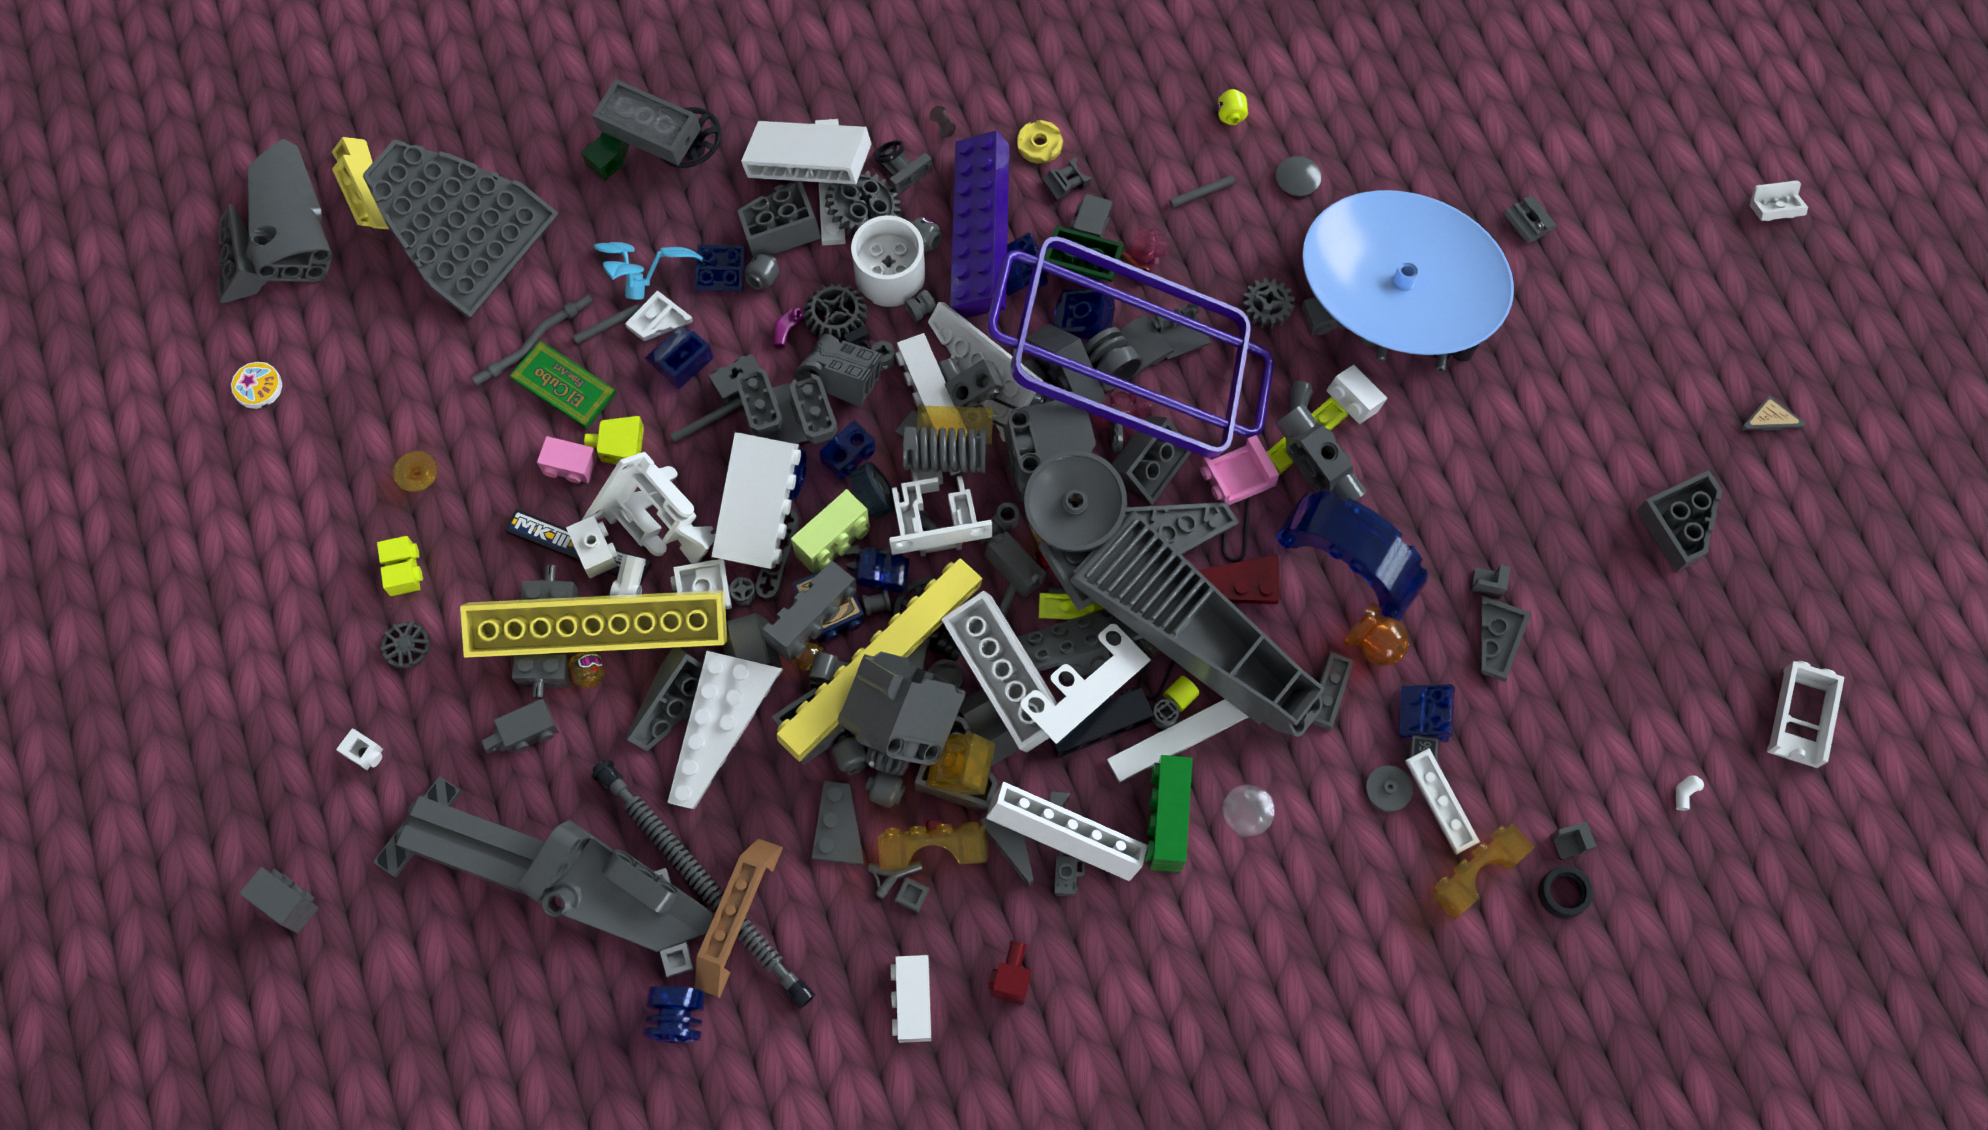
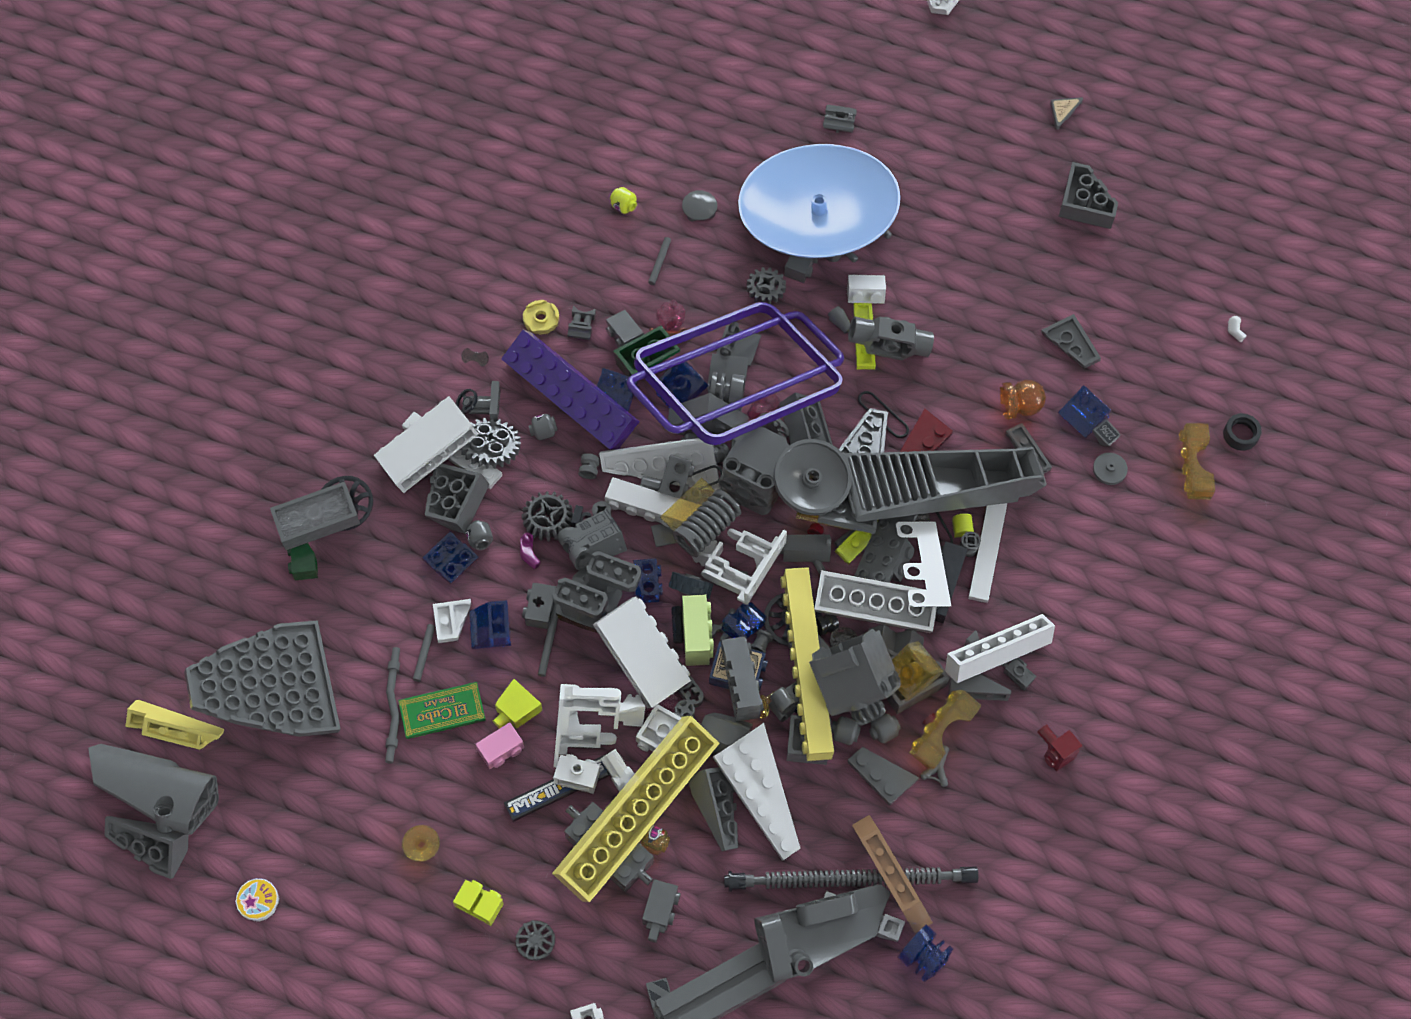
camera: 50 degrees left, 5 degrees down
(634, 279) = (411, 609): medium azure plant -> none
(892, 244) = (546, 457): white brick -> none
(911, 999) = (1024, 814): white brick -> none
(912, 895) = (959, 766): dark grey tile -> none
(1000, 525) = (769, 534): dark grey pin -> none
(1170, 813) = (1033, 586): green brick -> none
(1240, 472) = (858, 385): bright pink panel -> none
(1248, 810) = (1062, 548): clear dish -> none
(1363, 542) = (958, 357): clear blue windscreen -> none
(1442, 801) = (1141, 447): white tile -> none
(1491, 582) = (1037, 319): dark grey panel -> none
(1573, 840) = (1217, 403): dark grey panel -> none
(1799, 748) = (1254, 259): white door -> none

